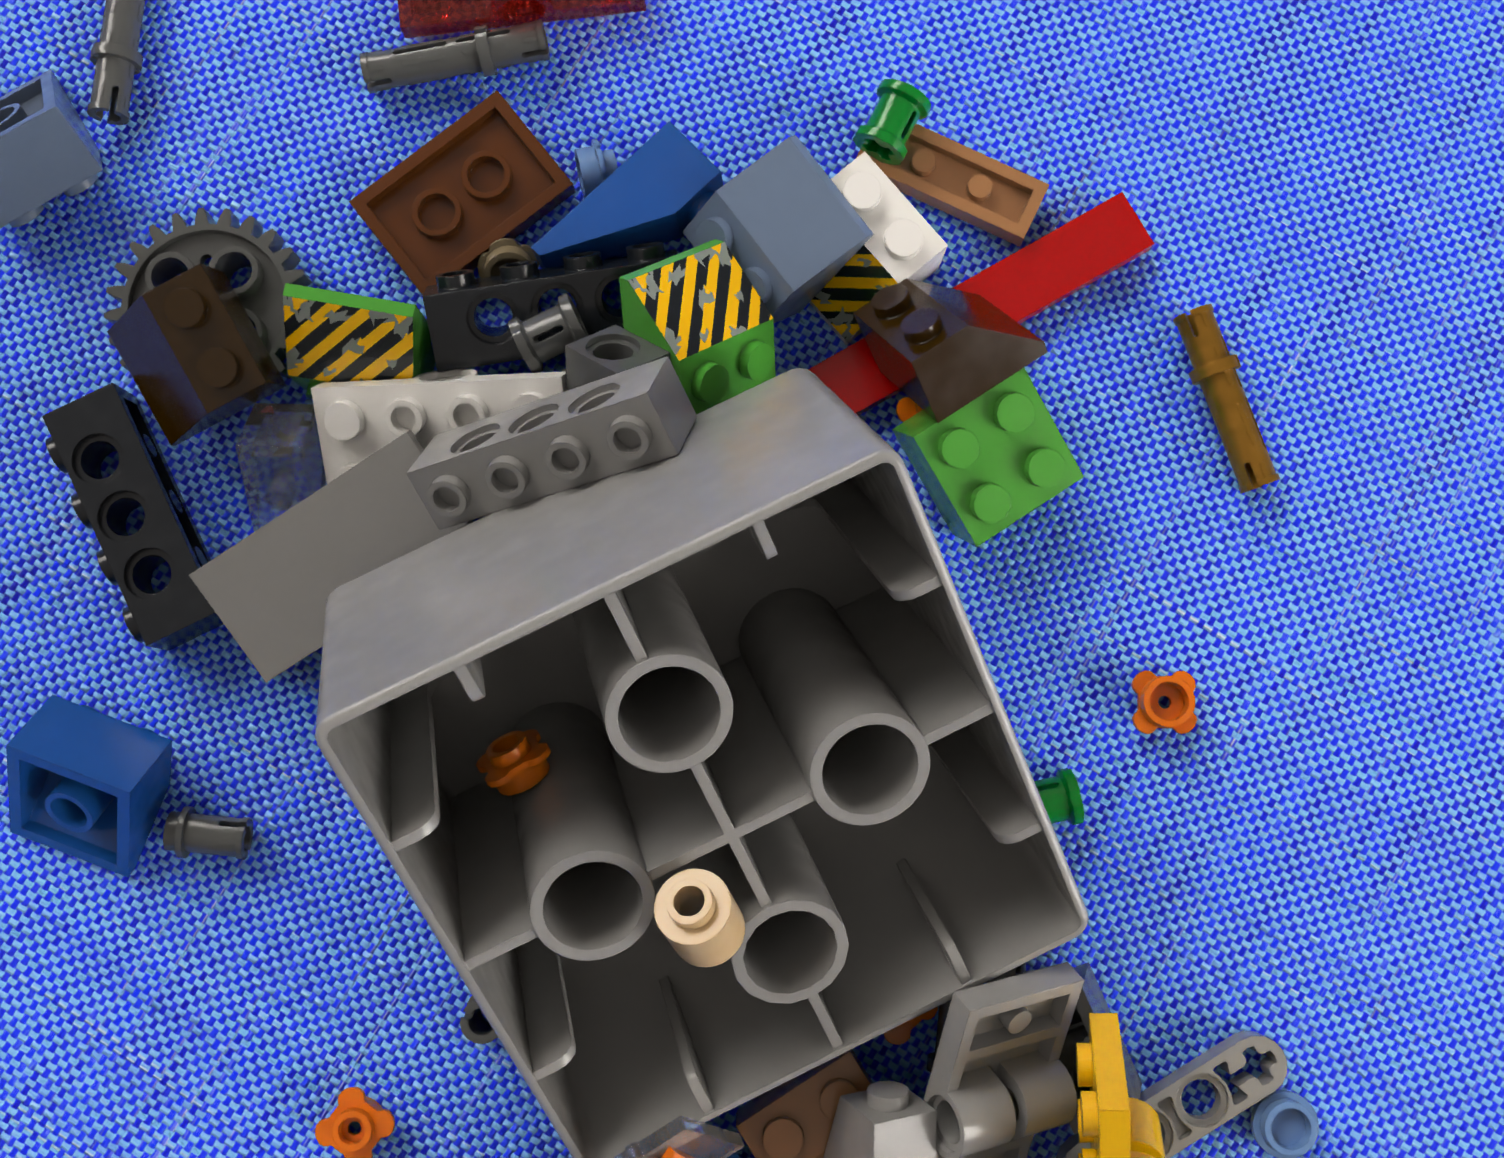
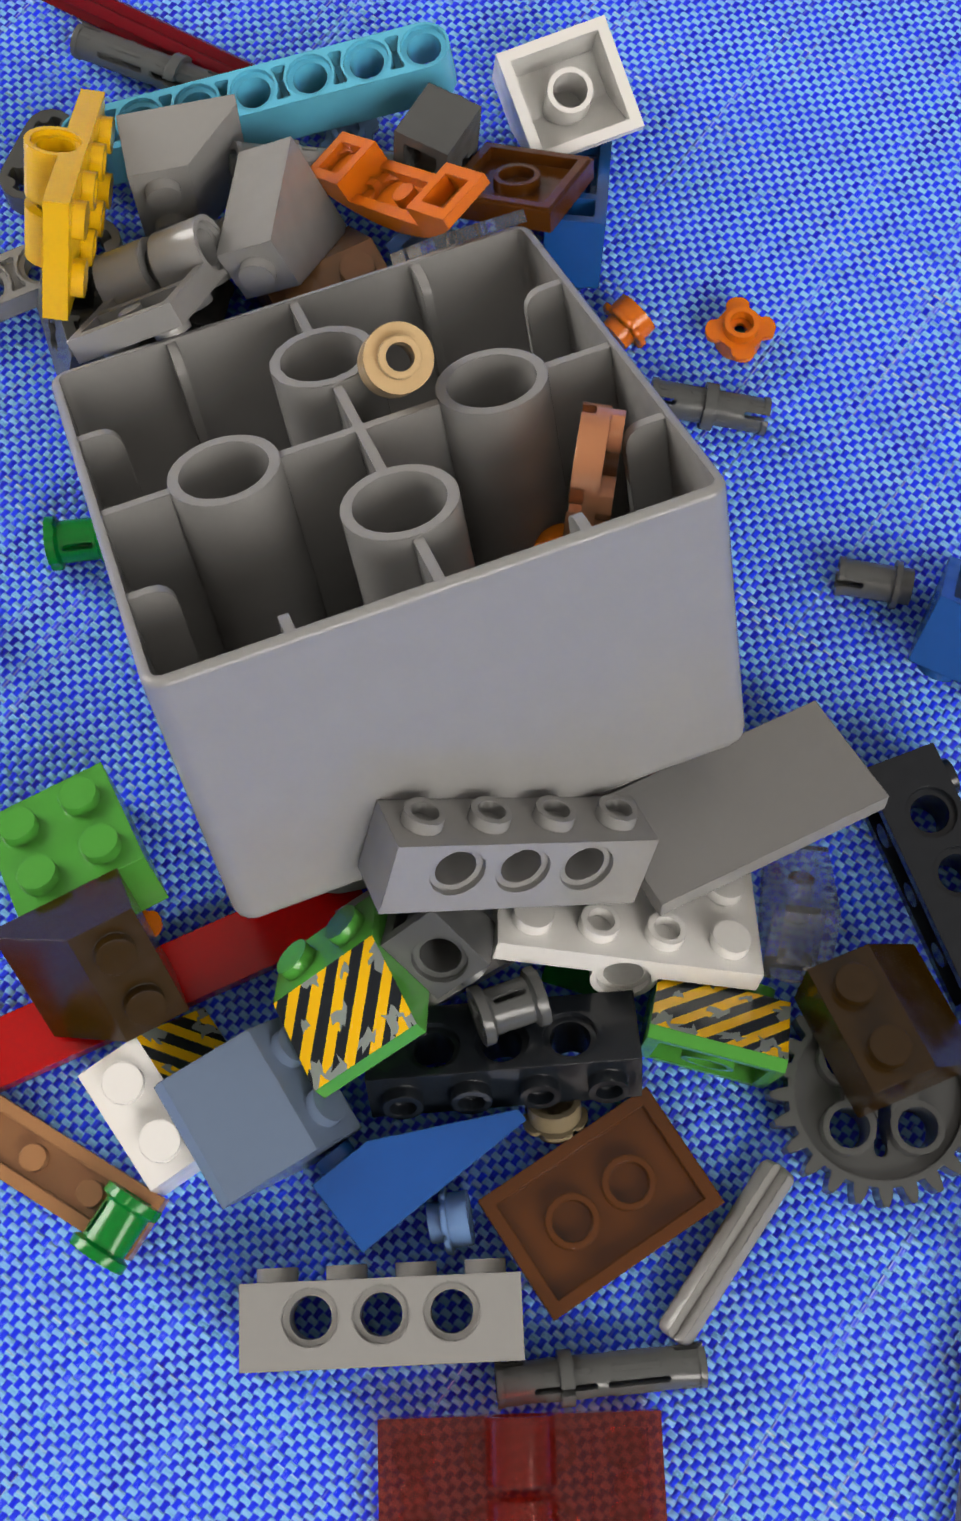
camera: 175 degrees left, 10 degrees down
(347, 168) = (726, 1252): none -> light grey axle
(387, 1025) = (713, 407): none -> dark grey pin
(476, 792) = (595, 463): none -> nougat plate
(482, 1123) = (628, 322): none -> orange plate
(620, 61) = (274, 1344): none -> light grey brick

